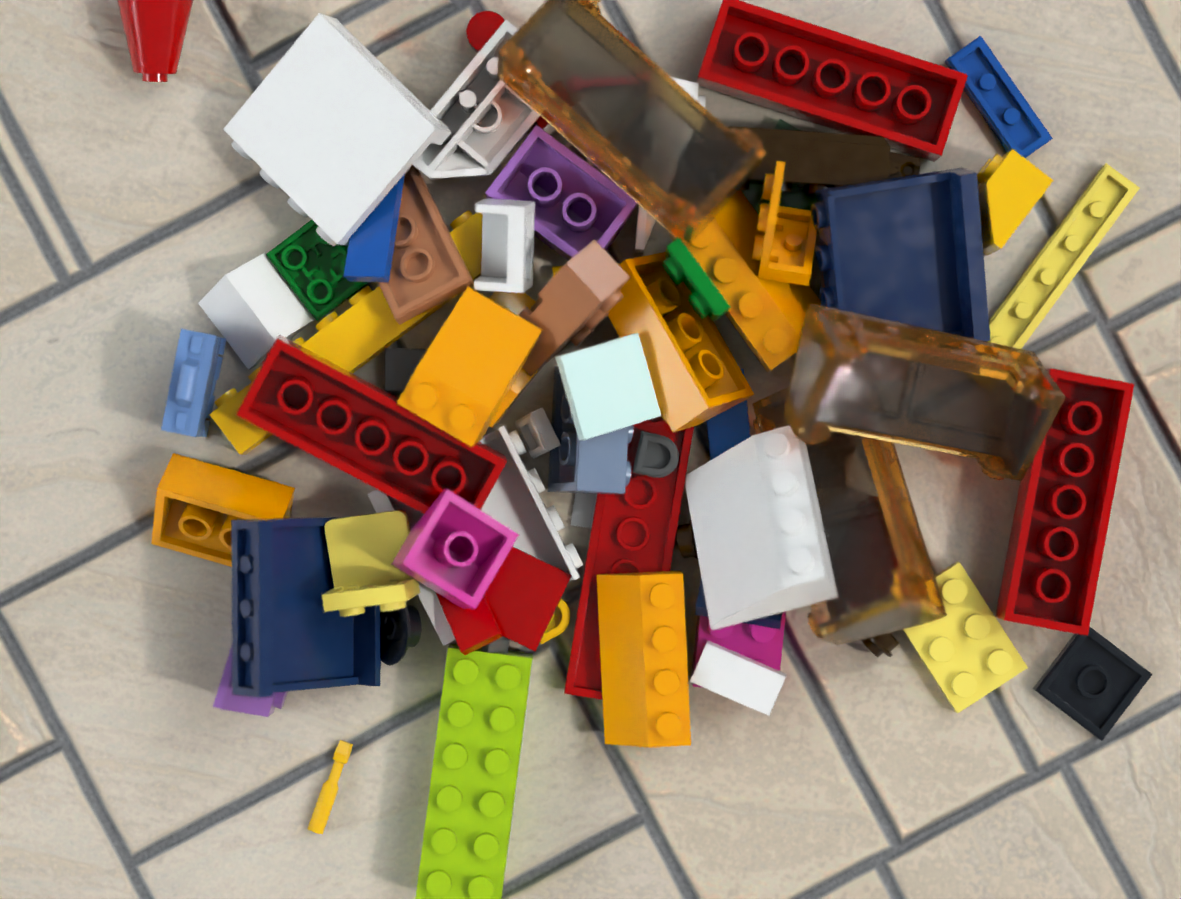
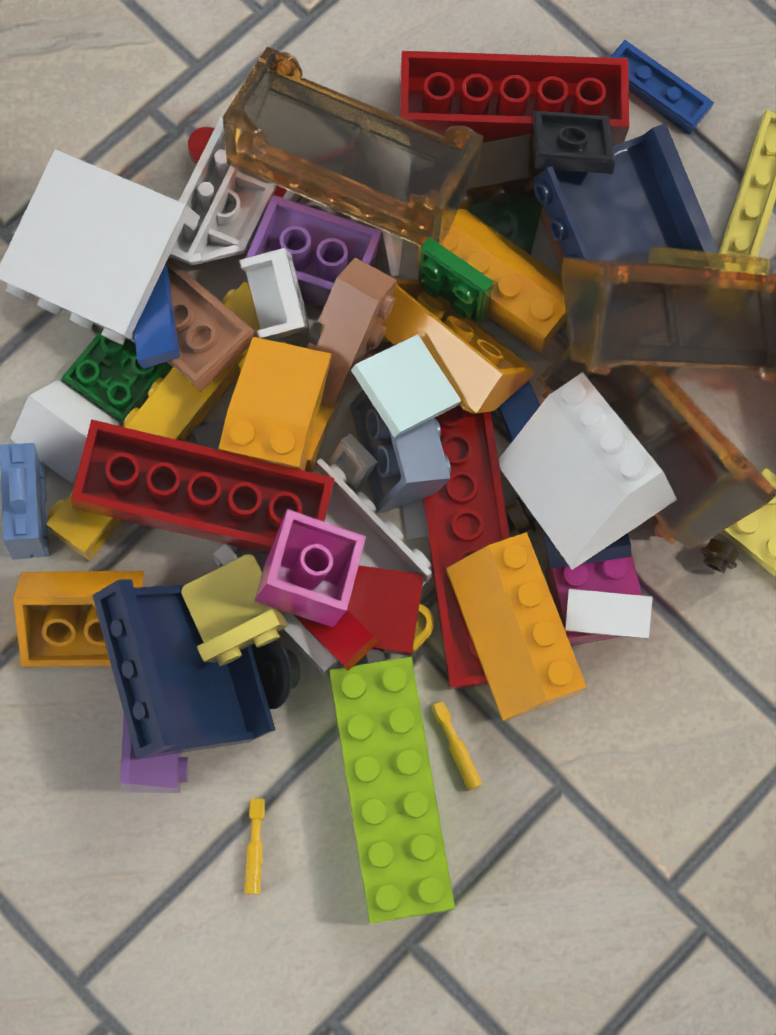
camera: 20 degrees left, 15 degrees down
(554, 751) = (457, 748): none -> yellow piece
(655, 455) = (465, 447): dark grey tile -> none
(789, 236) = (518, 231): light orange bracket -> none
(869, 165) = (572, 142): none -> black tile
(970, 336) = (709, 260): none -> clear yellow tile
(1007, 193) = (698, 138): yellow slope -> none

